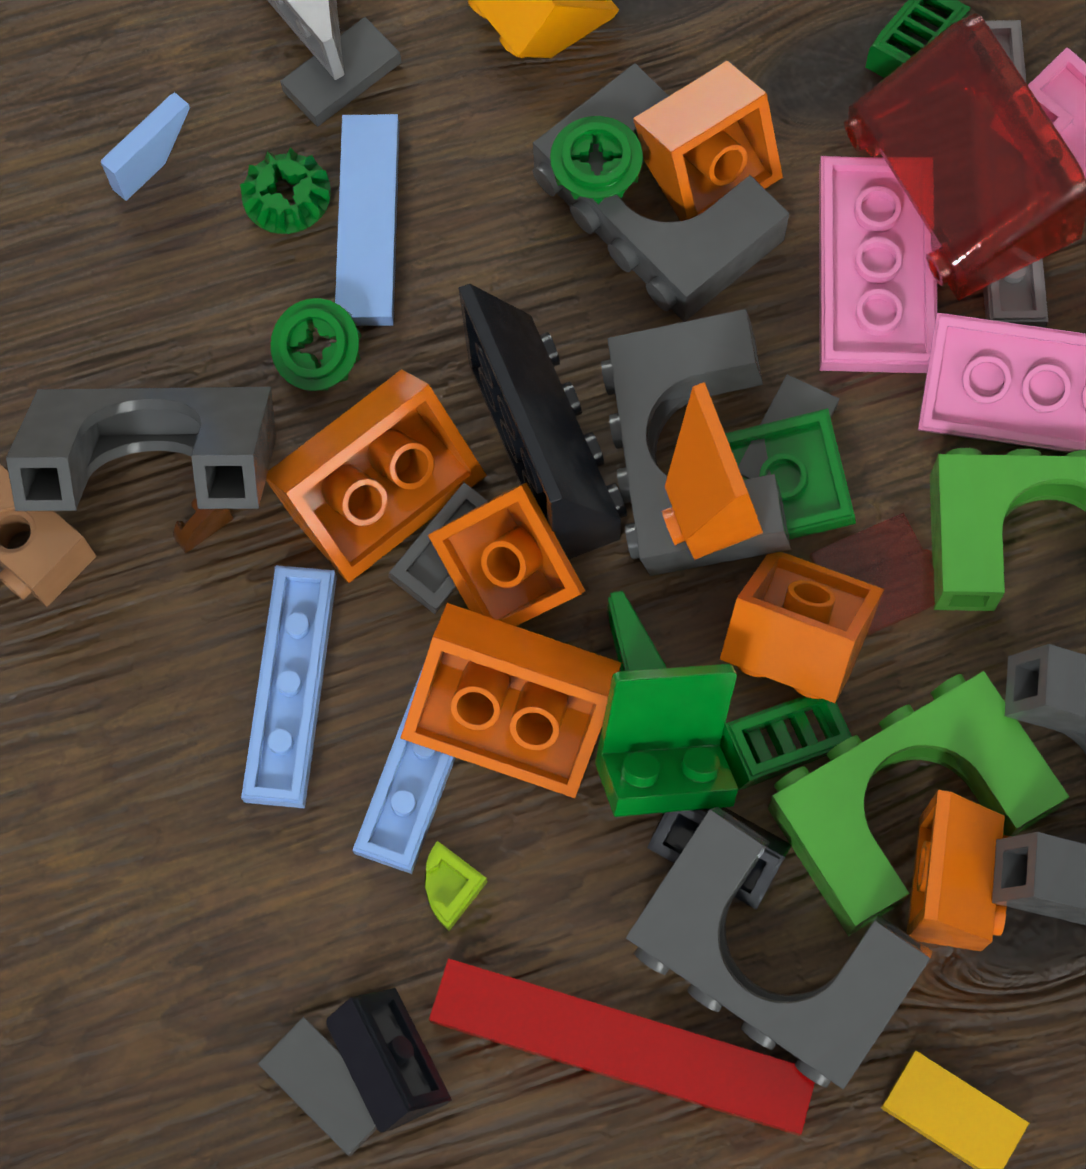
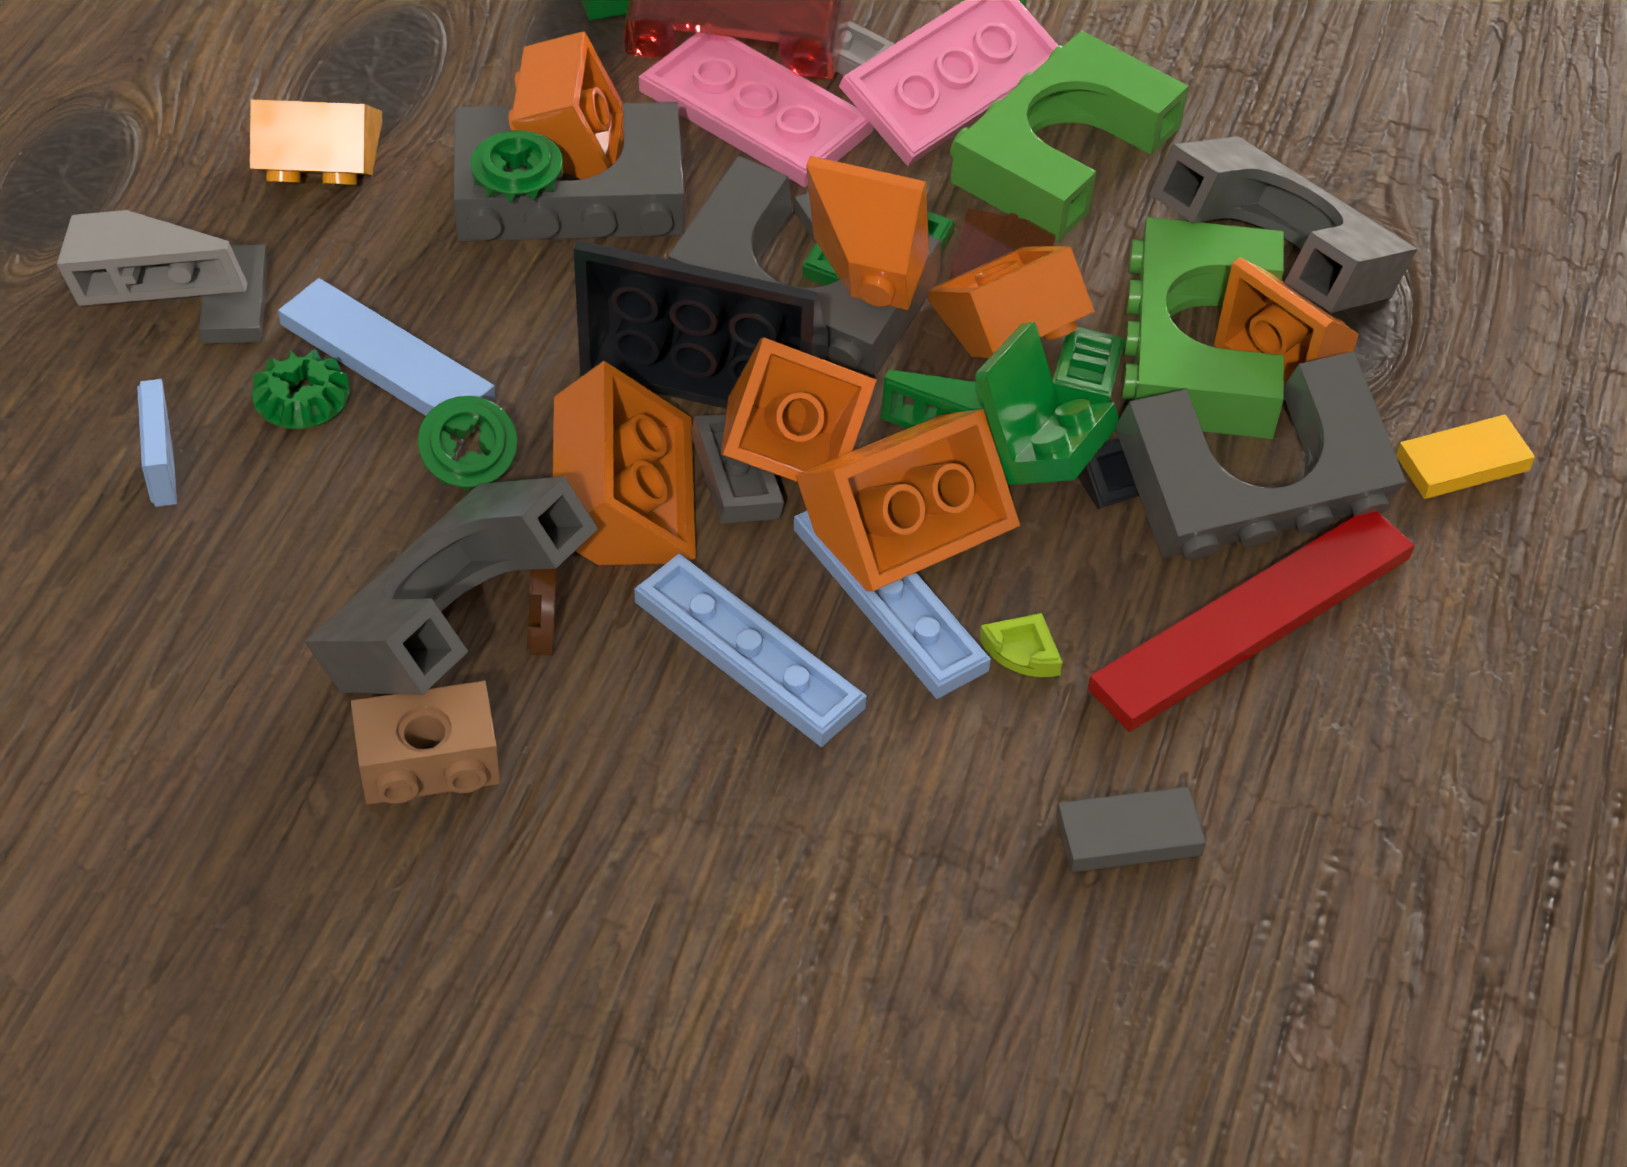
camera: 60 degrees left, 20 degrees down
(387, 1059) = (1143, 768): black slope -> none

